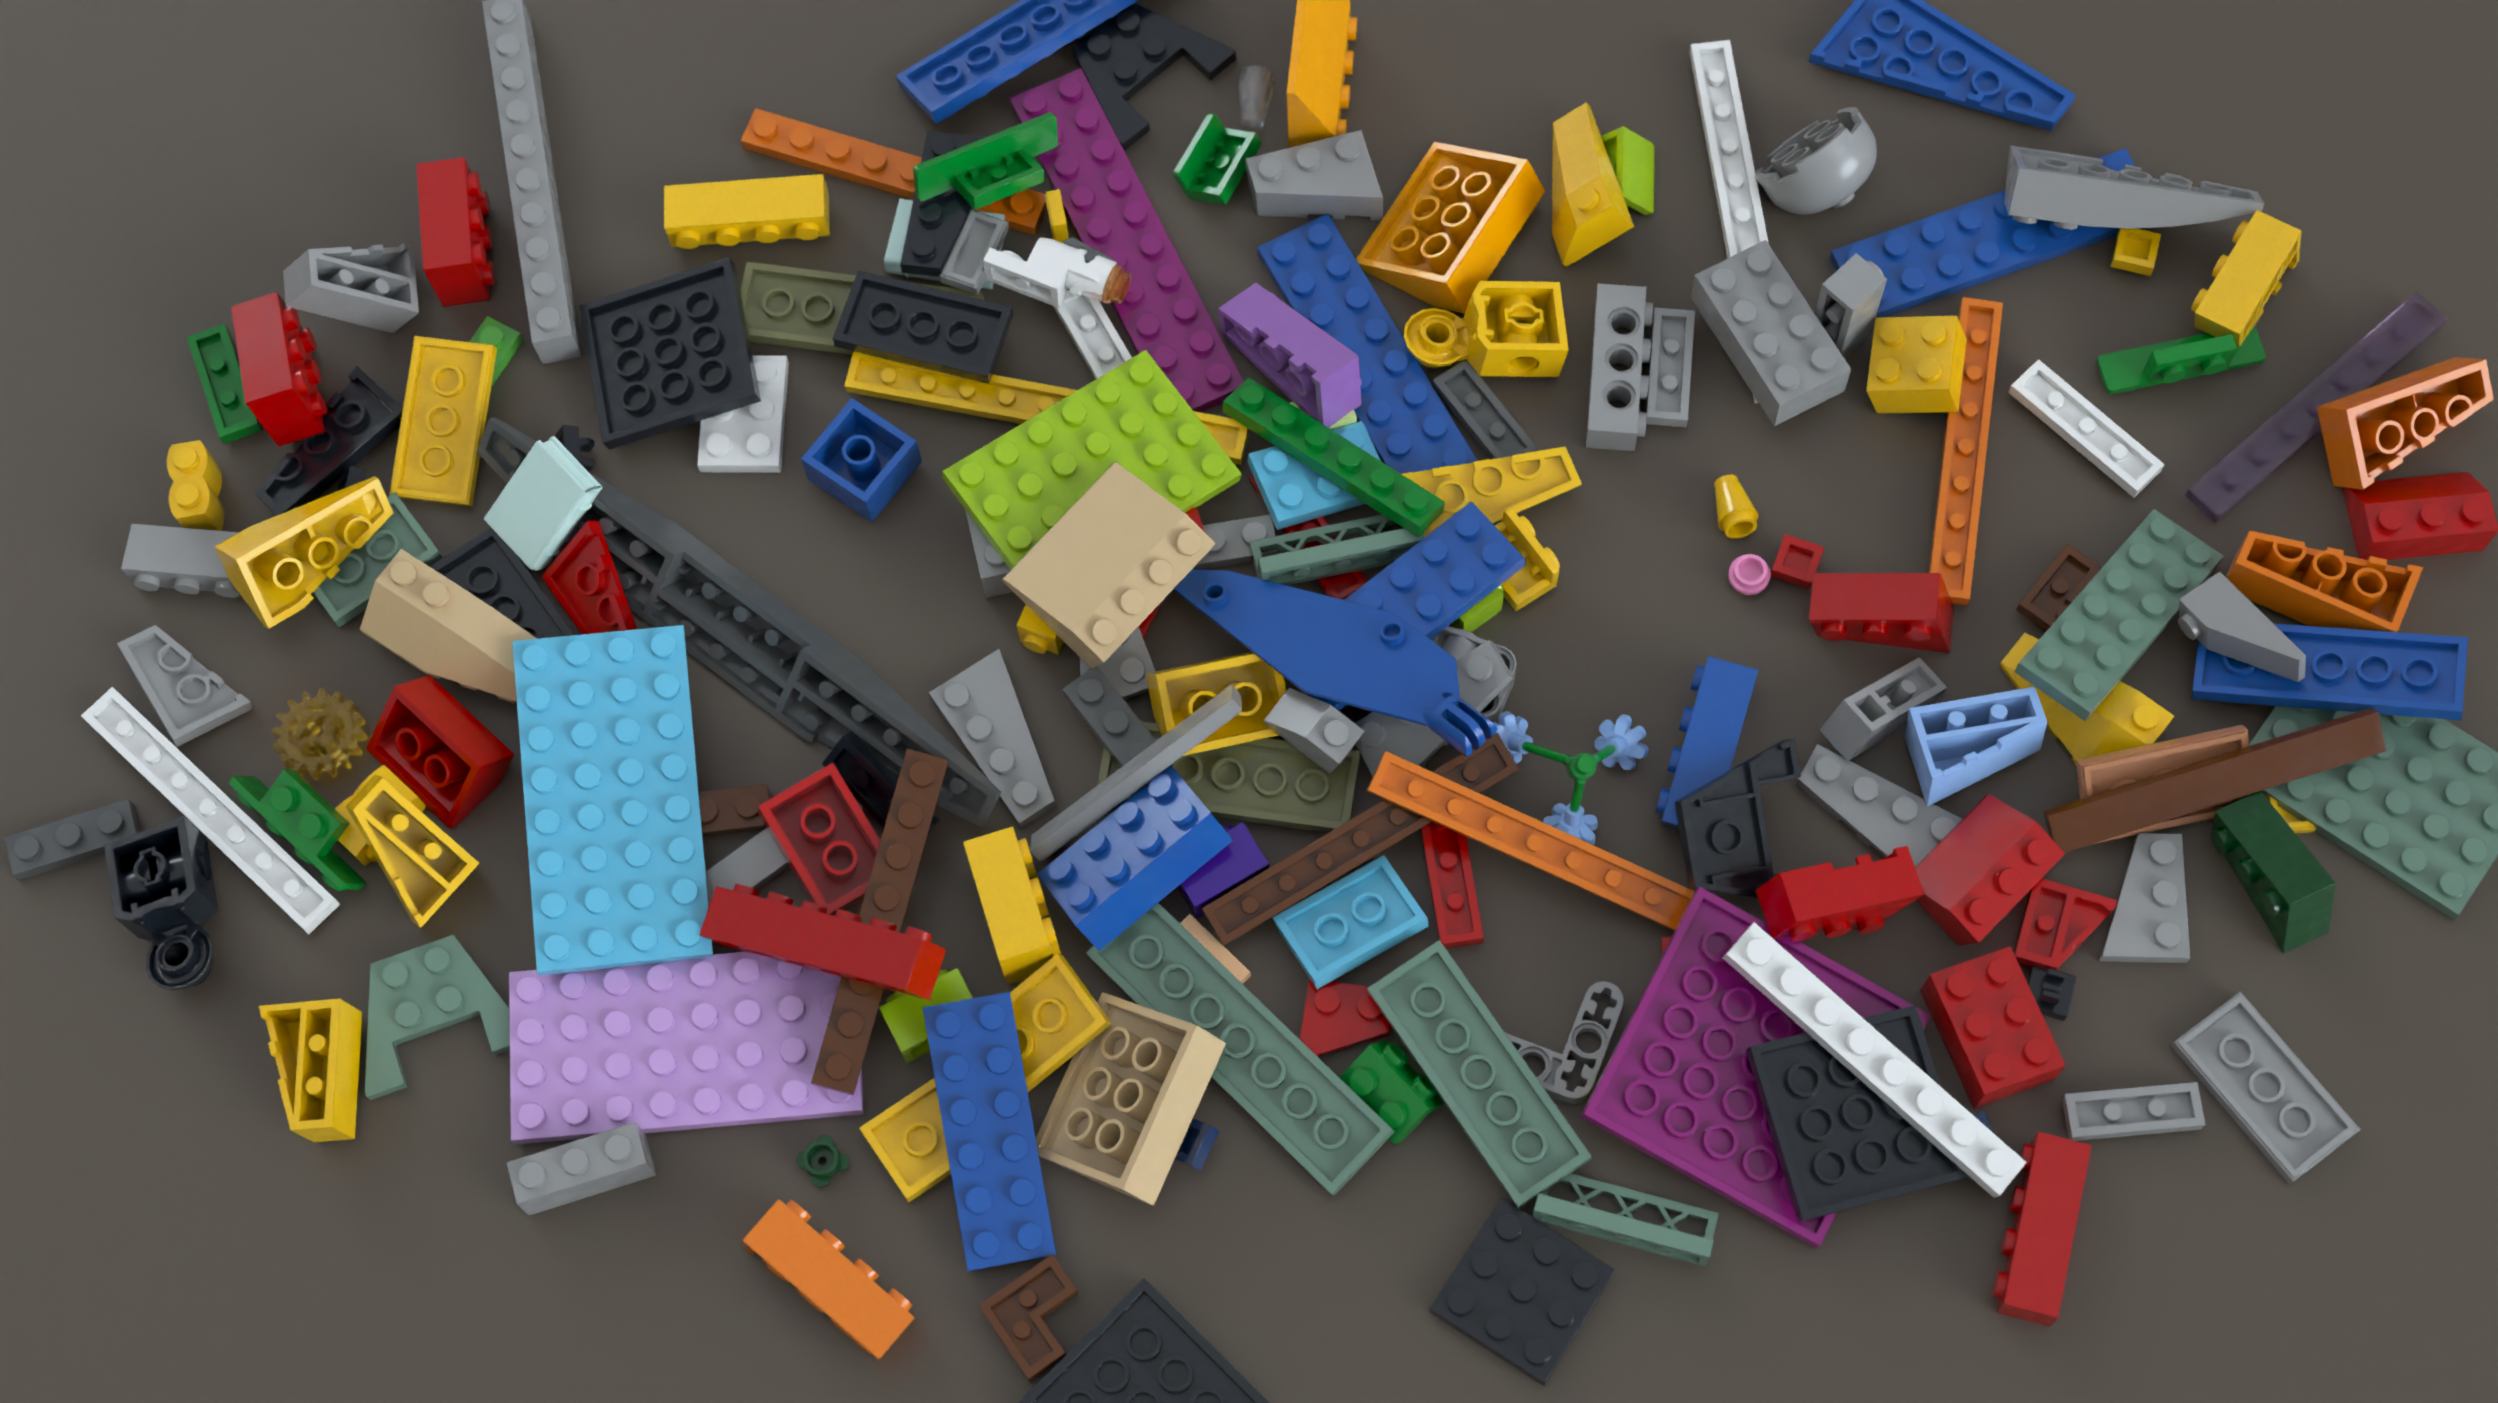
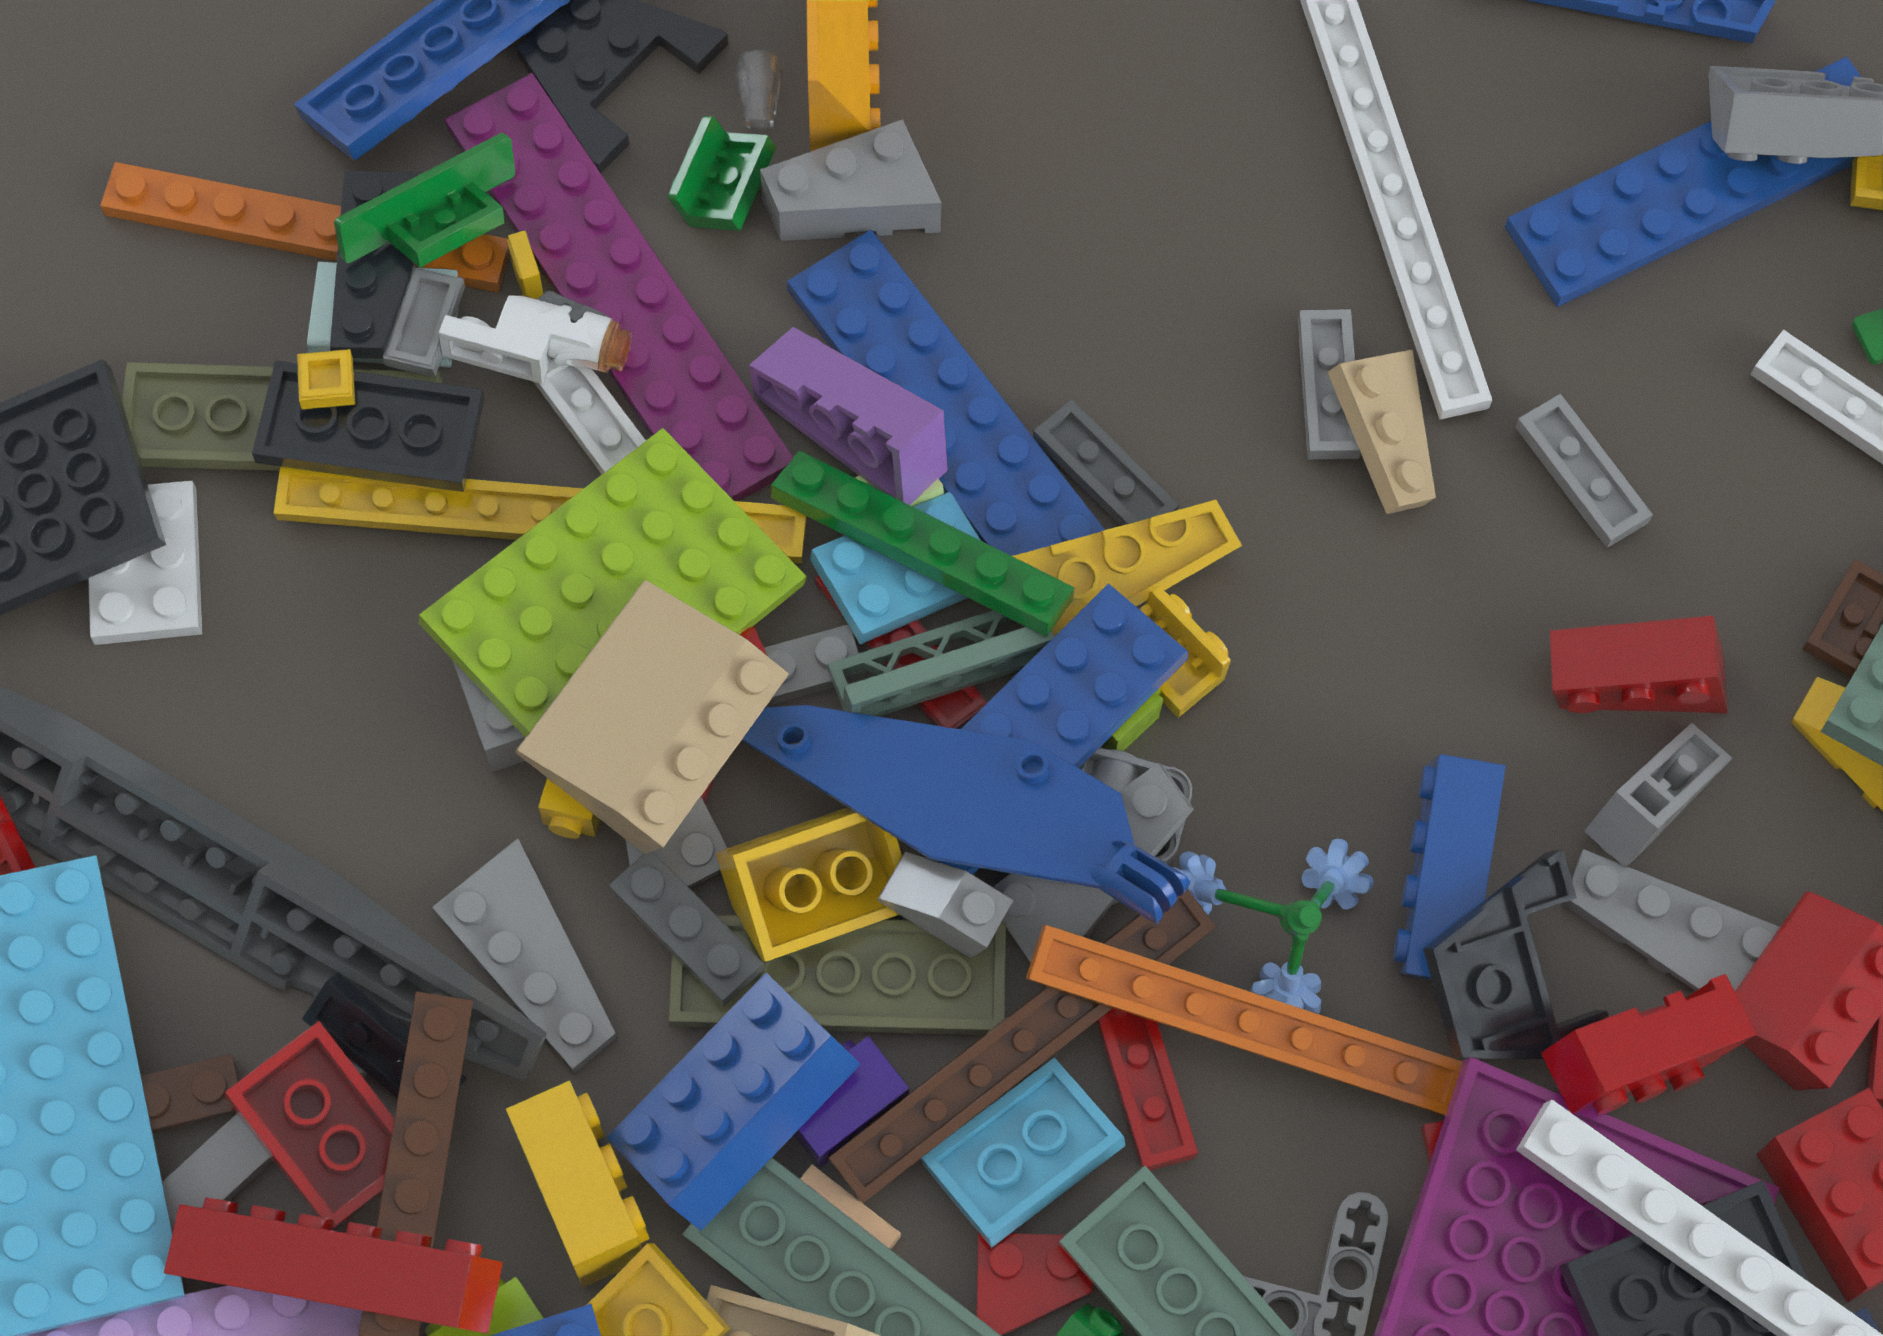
camera: 15 degrees left, 0 degrees up
(746, 211) = (118, 297): yellow brick -> none
(861, 460) = (308, 608): blue brick -> none
(894, 288) = (326, 379): none -> yellow tile
(1136, 773) = (721, 989): light grey tile -> none
(1452, 224) = (1030, 229): light orange slope -> none
(1504, 332) = (1116, 360): yellow brick -> none
(1585, 191) = (1192, 173): yellow wedge -> none
(1618, 308) = (1258, 465): light grey brick -> none
(1633, 167) = (1234, 143): lime panel -> none
(1711, 405) = (1388, 426): none -> tan wing
(1734, 508) = (1435, 557): yellow cone -> none
(1749, 574) = (1465, 639): bright pink plate -> none
(1770, 333) = (1452, 329): light grey brick -> none
(1797, 561) = (1523, 616): red plate -> none
(1826, 170) = (1490, 119): light grey cylinder -> none
(1850, 303) = (1545, 289): light grey brick -> none
(1862, 454) = (1583, 470): none -> light grey plate
(1916, 364) = (1637, 351): yellow brick -> none
(1966, 451) = (1709, 448): orange plate -> none
(1972, 739) = (1777, 822): light blue wedge -> none

